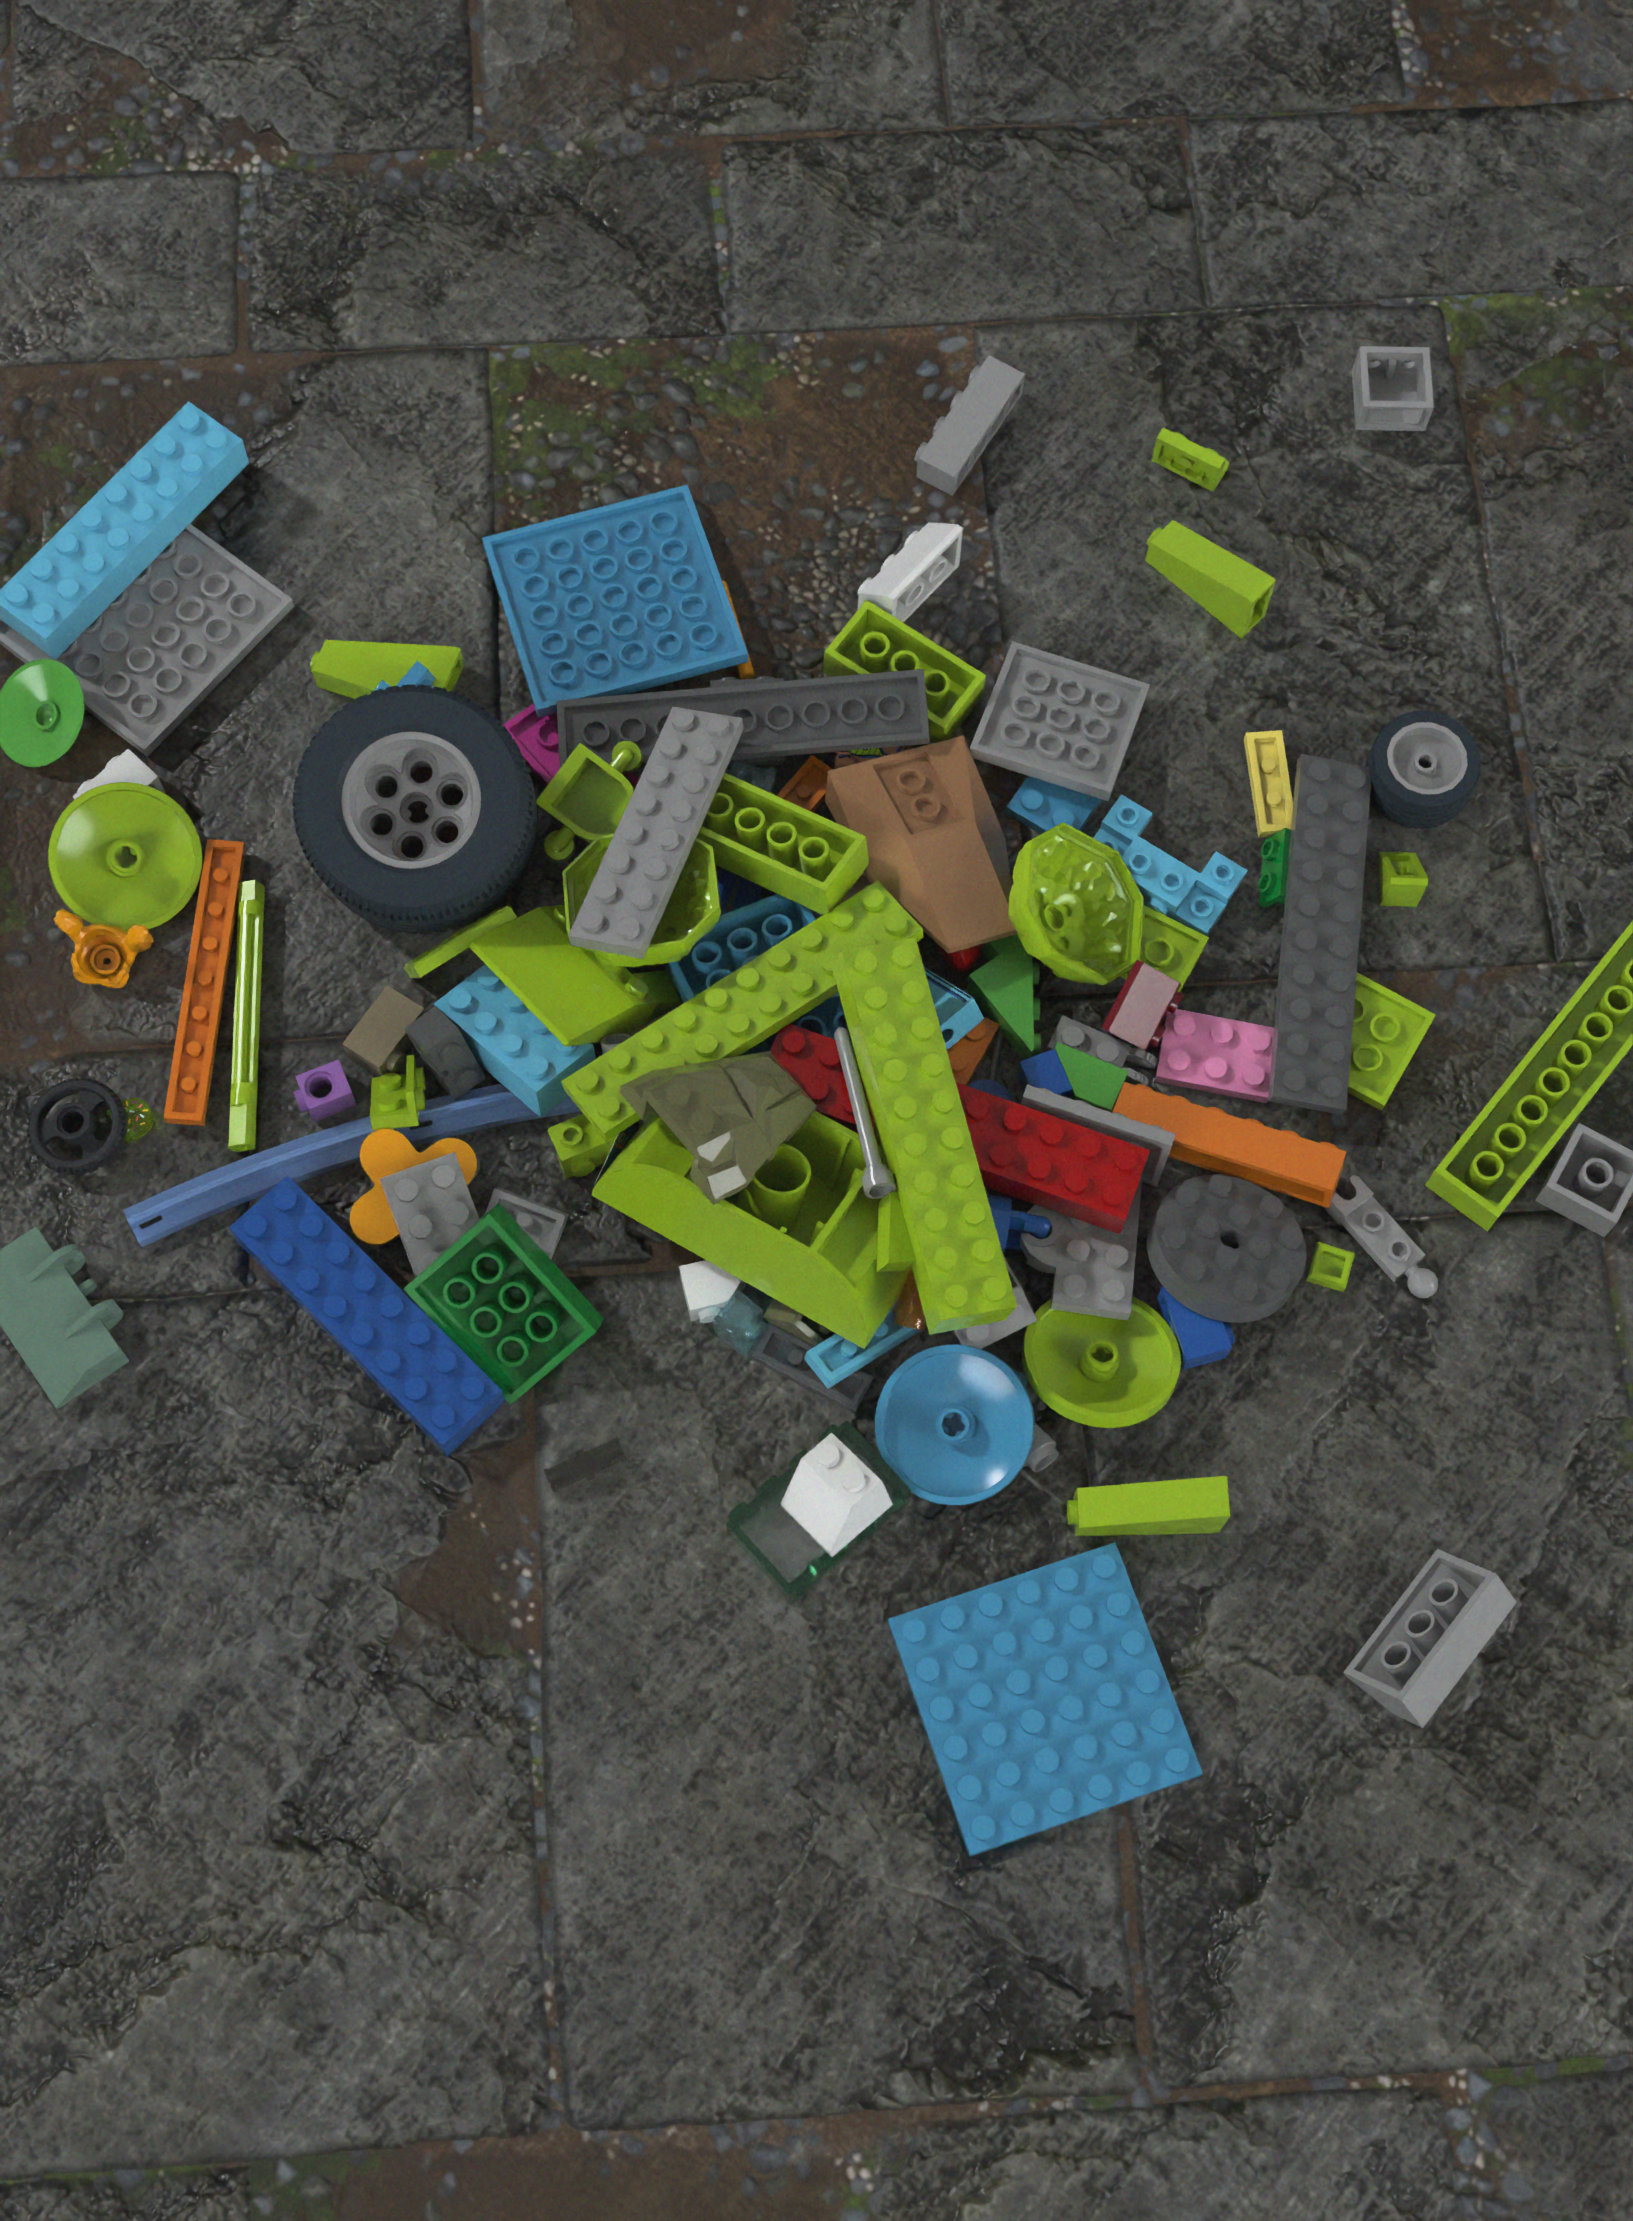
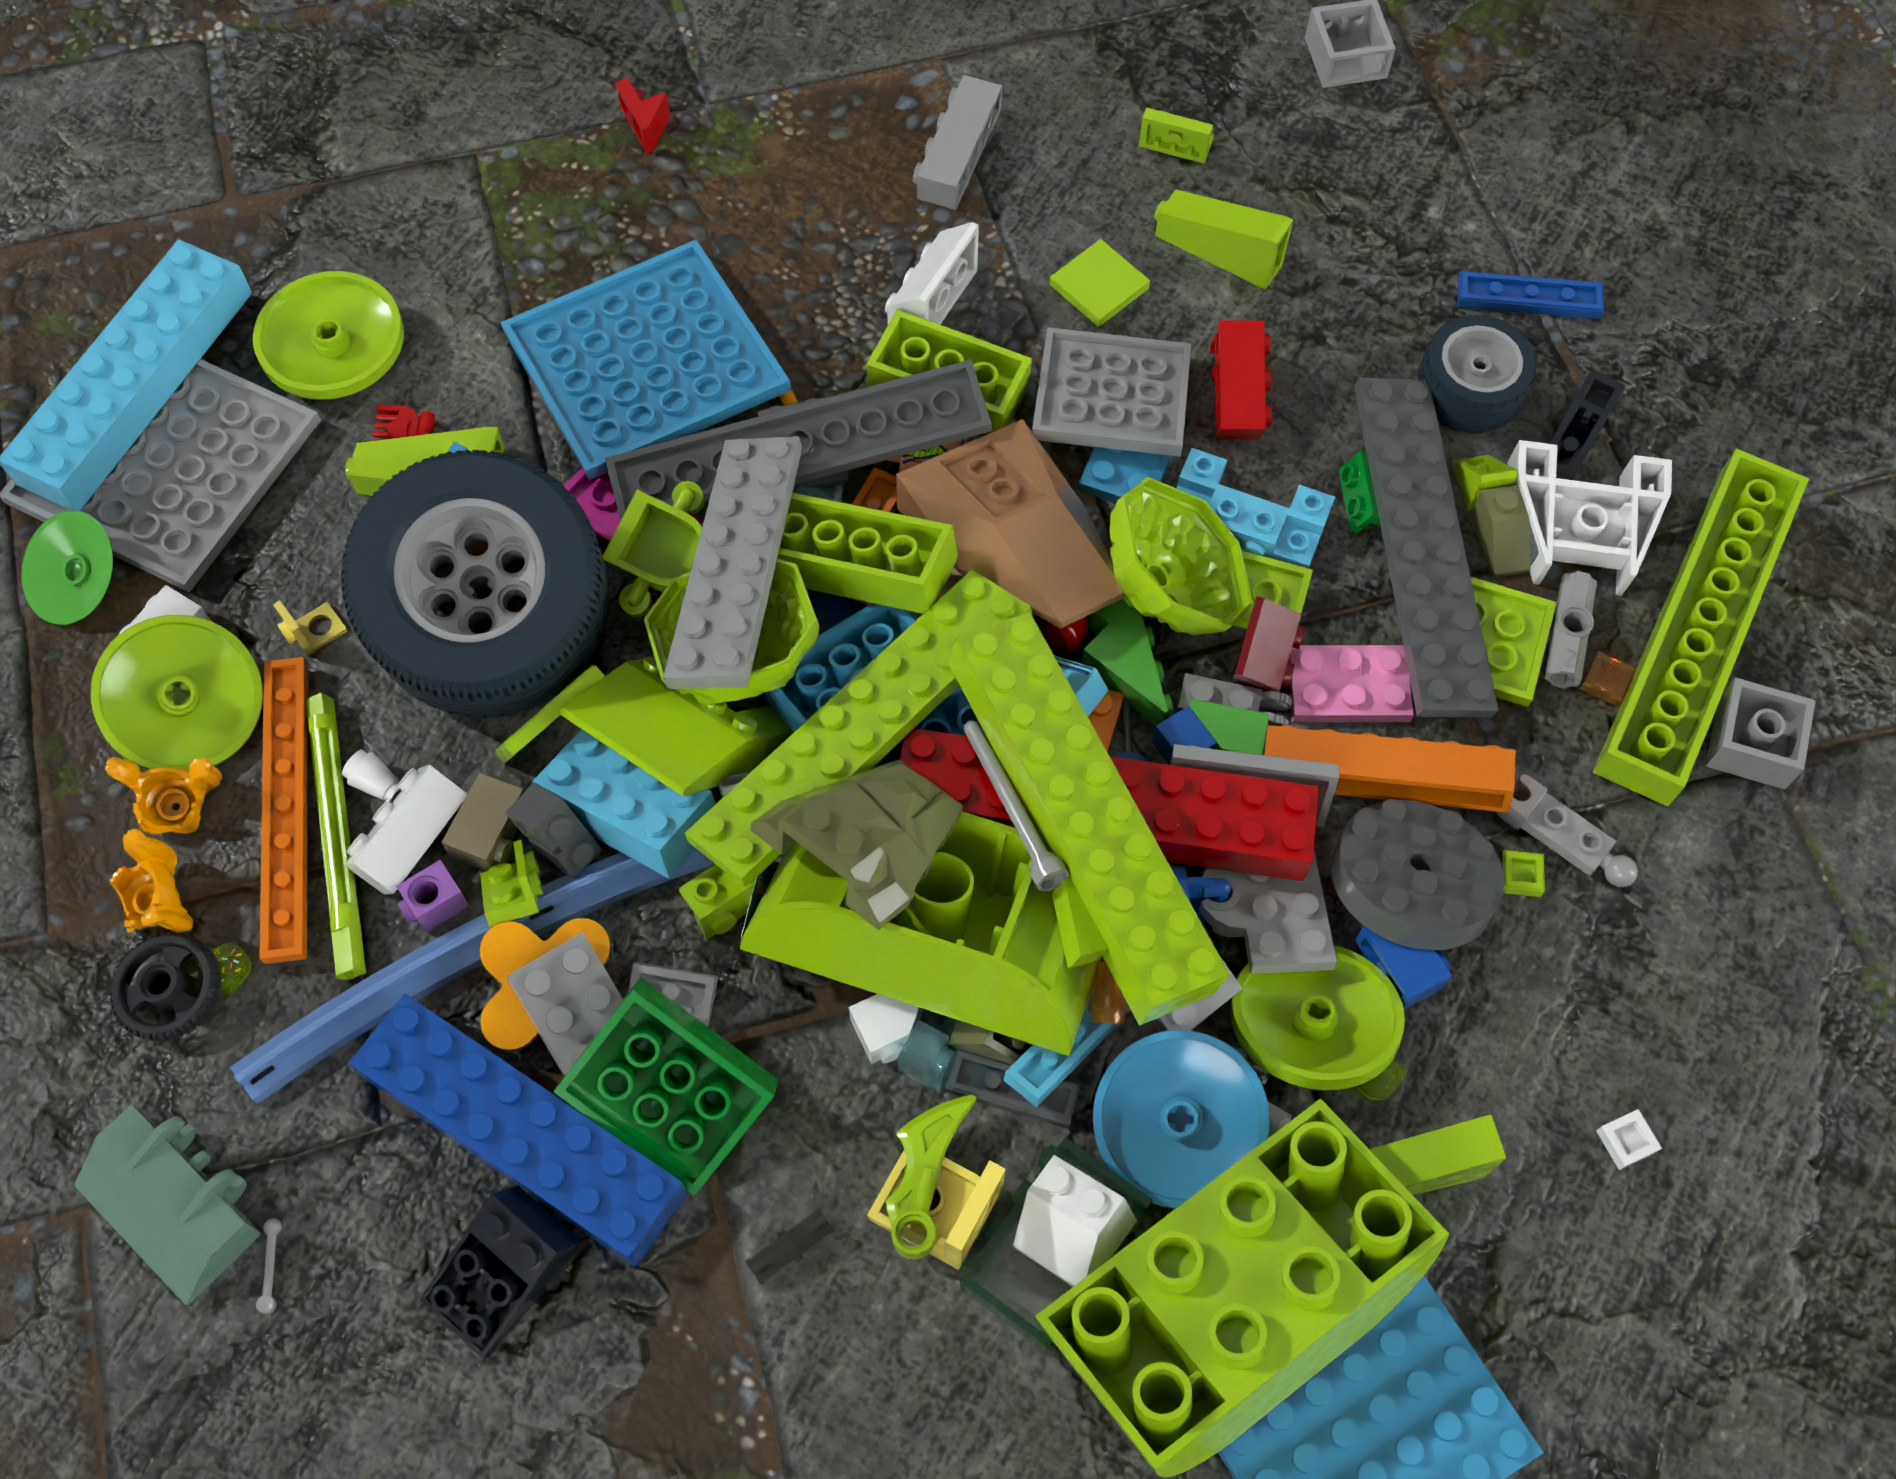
camera: 10 degrees left, 5 degrees down
(75, 1027) = (149, 887): none -> light orange hair
(125, 1420) = (266, 1303): none -> light grey hinge
(242, 813) = (300, 629): none -> light yellow bracket
(288, 967) = (371, 776): none -> white cone
(311, 1023) = (404, 828): none -> white brick
(315, 521) = (328, 335): none -> lime dish
(330, 1432) = (499, 1268): none -> black slope
(372, 626) = (403, 422): none -> red piece
(663, 340) = (645, 116): none -> red slope
(721, 1403) = (925, 1147): none -> lime piece
(738, 1470) = (961, 1211): none -> light yellow bracket
(970, 1581) = (1245, 1290): none -> lime brick
(1076, 601) = (1099, 282): none -> lime tile
(1149, 1430) = (1385, 1083): none -> clear neon green tile
(1188, 733) = (1241, 379): none -> red wedge
(1269, 781) = (1330, 413): light yellow plate -> none
(1357, 1525) = (1628, 1139): none -> white plate
(1405, 934) = (1503, 530): none -> olive slope
(1431, 1637) = (1741, 1245): light grey slope -> none
(1433, 1060) = (1567, 647): none -> light grey piece
(1465, 1098) = (1608, 678): none -> clear orange plate
(1487, 939) = (1590, 520): none -> white wedge
(1504, 694) = (1530, 295): none -> blue tile
(1510, 844) = (1584, 422): none -> black slope

